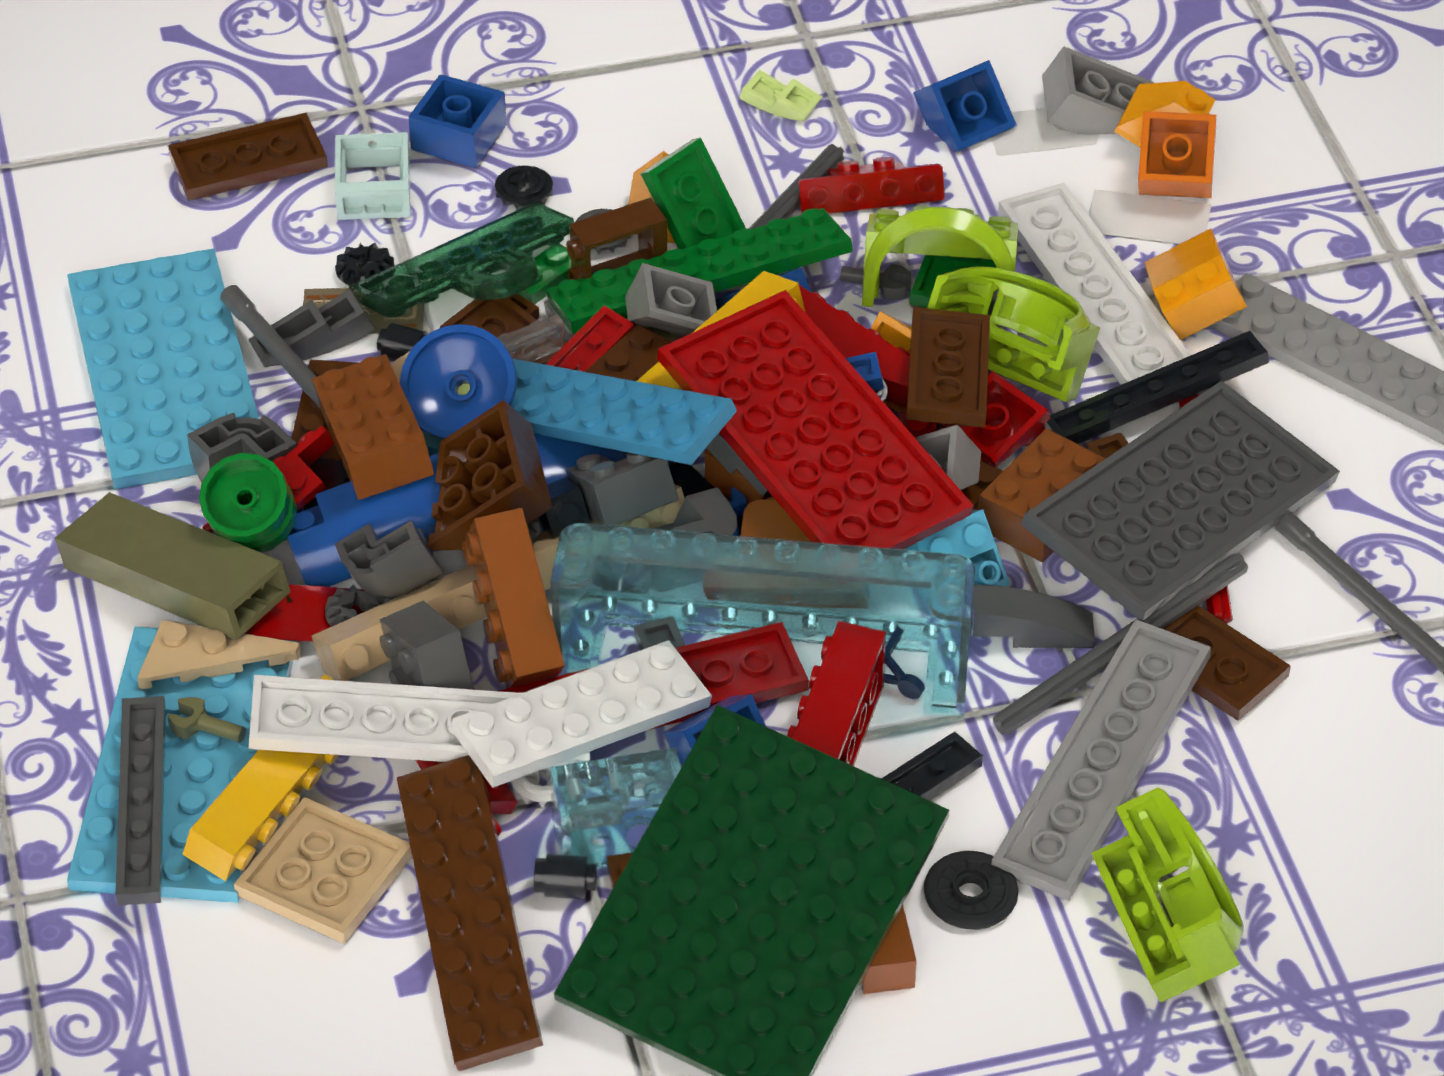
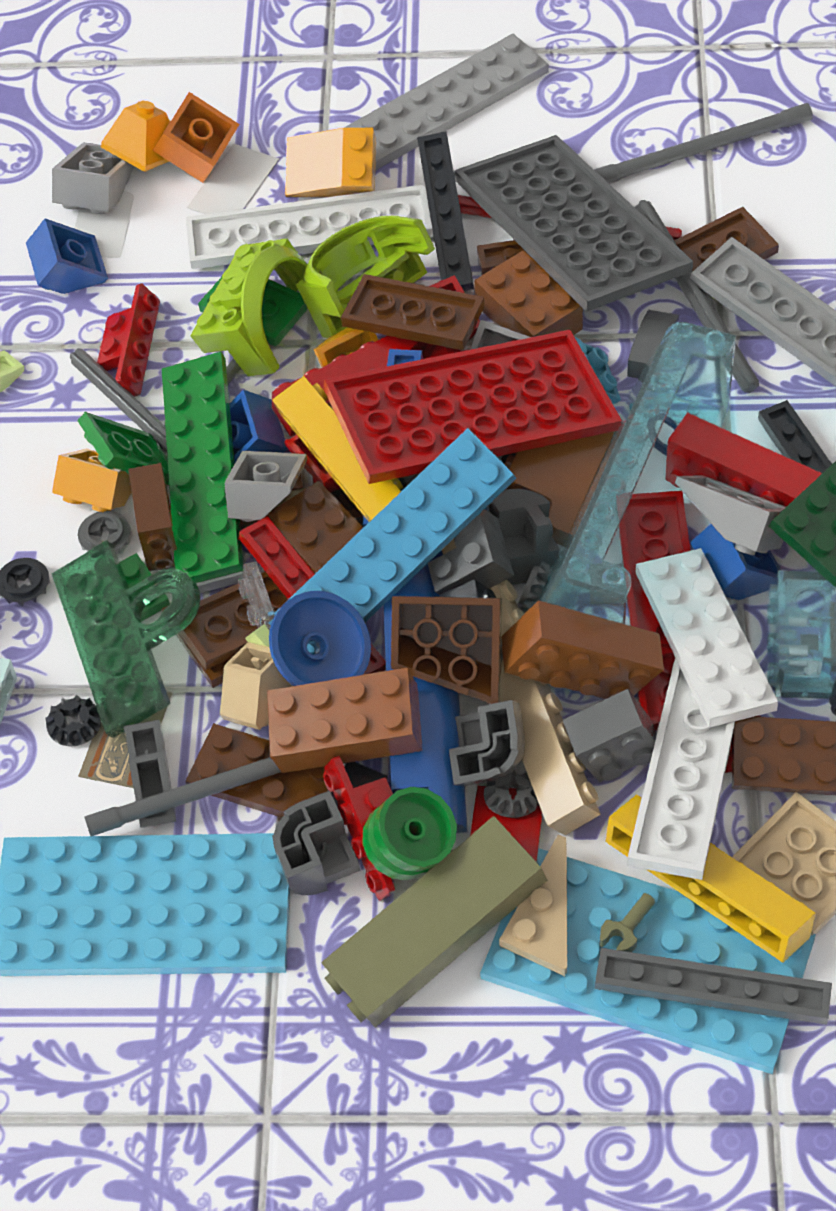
camera: 70 degrees left, 10 degrees up
(398, 340) = (198, 702): black brick -> none
(756, 681) = (734, 513): none -> light grey slope

